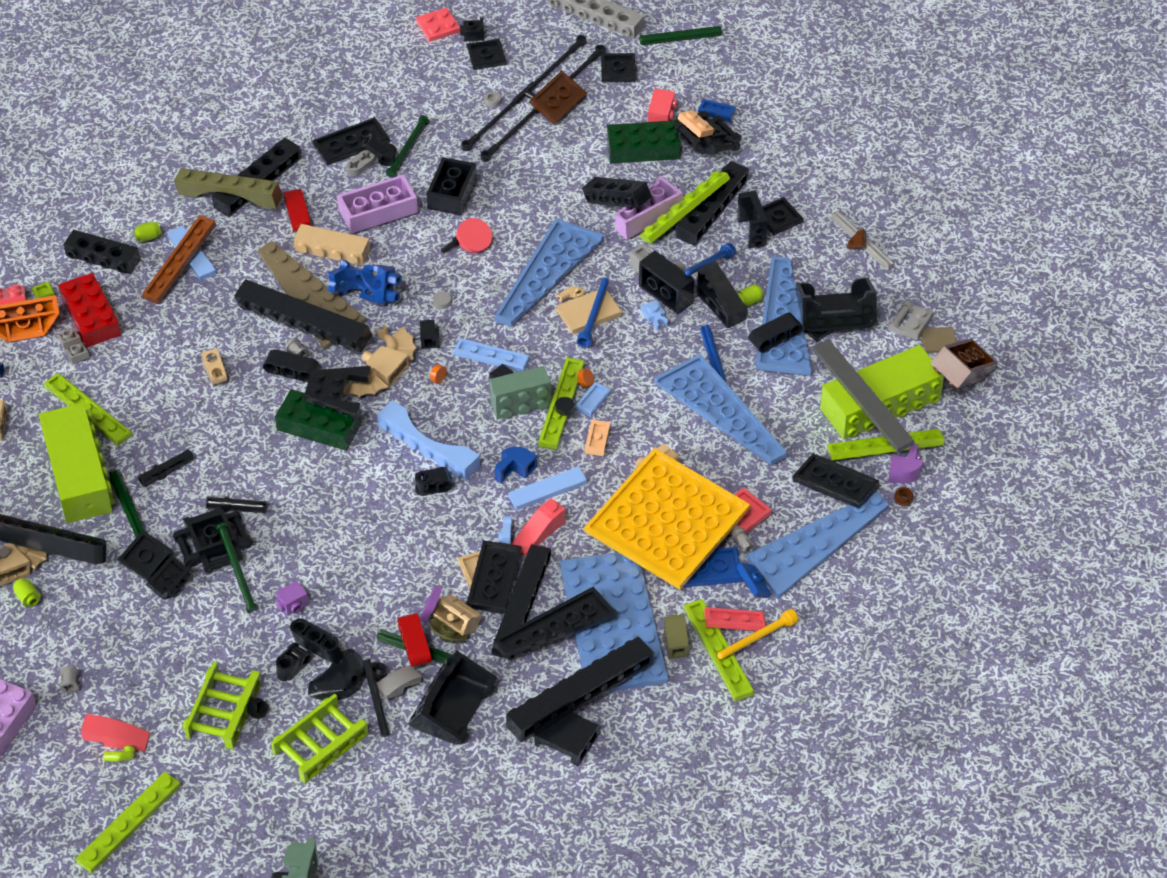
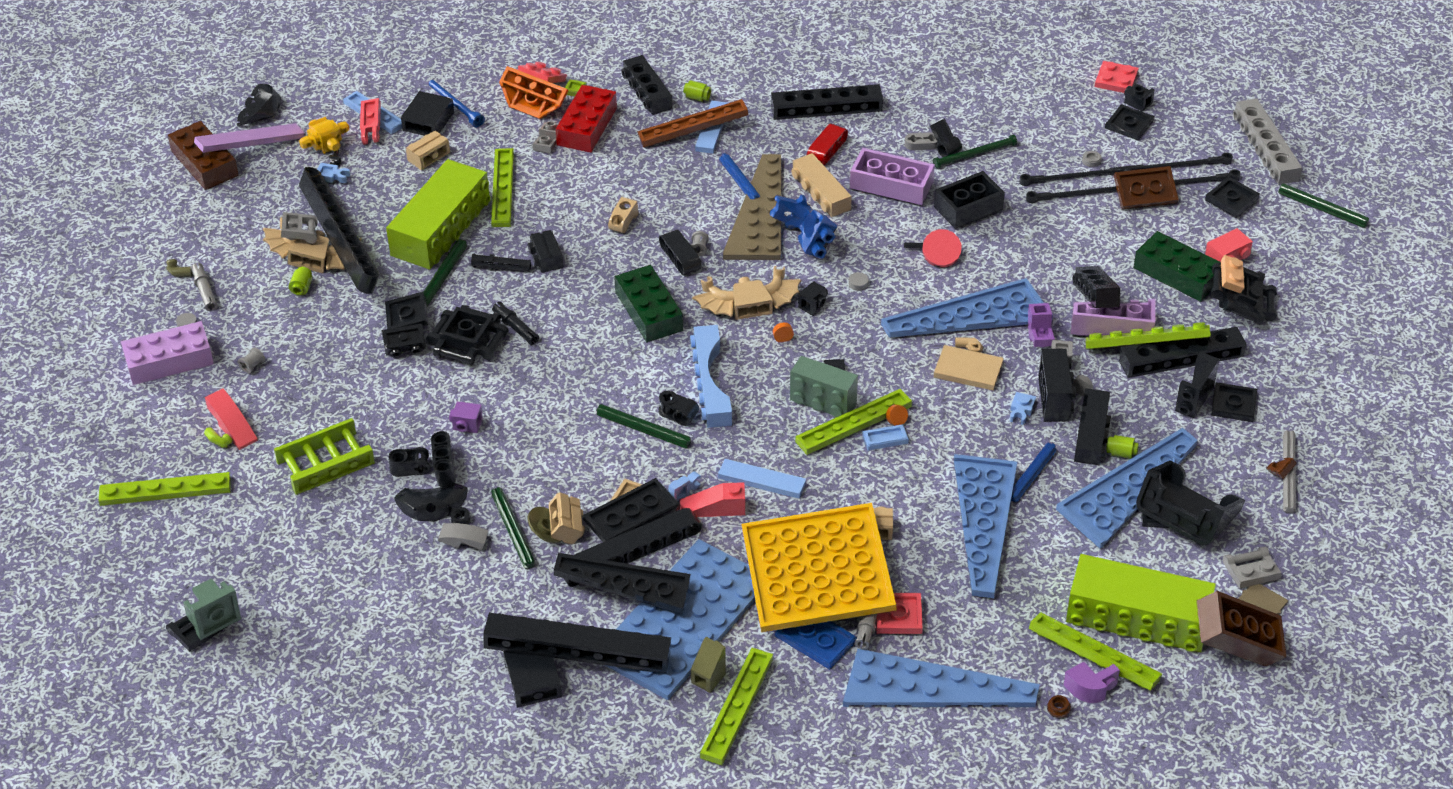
camera: 45 degrees right, 5 degrees down
(190, 434) = (546, 251): none -> black brick
(222, 528) = (470, 328): dark green bar -> none
(259, 191) = (808, 110): olive arch -> none
(261, 279) = (738, 176): none -> blue axle
(261, 705) = (344, 483): black plate -> none
(303, 316) = (729, 221): black brick -> none
(326, 755) = (356, 547): lime fence -> none
(328, 387) = (679, 279): black wing -> none
(348, 141) = (920, 117): black tile -> none
(376, 698) = (431, 534): black bar -> none
(414, 639) = (507, 511): red beam -> none
(422, 511) = (643, 426): none -> dark green axle
(430, 604) = (551, 490): medium lavender tile -> none
(452, 699) = (481, 579): black windscreen -> none
(491, 355) = (846, 348): light blue tile -> none
(517, 460) = (758, 436): blue brick -> none
(564, 406) = (848, 423): black tile -> none
(585, 337) = (935, 384): blue piece -> none
(597, 437) = (849, 468): light nougat plate -> none
(604, 247) = (1040, 324): none -> medium lavender brick
(715, 108) = (1285, 285): blue plate -> none
(726, 251) = (1146, 398): blue piece -> none
(734, 619) = (779, 691): coral tile -> none
(753, 580) = (836, 673): blue plate -> none
(775, 332) = (1102, 487): black beam -> none
(787, 618) = (825, 726): yellow piece -> none
(835, 480) = (1010, 647): black tile -> none
(863, 395) = (1104, 588): dark grey tile -> none

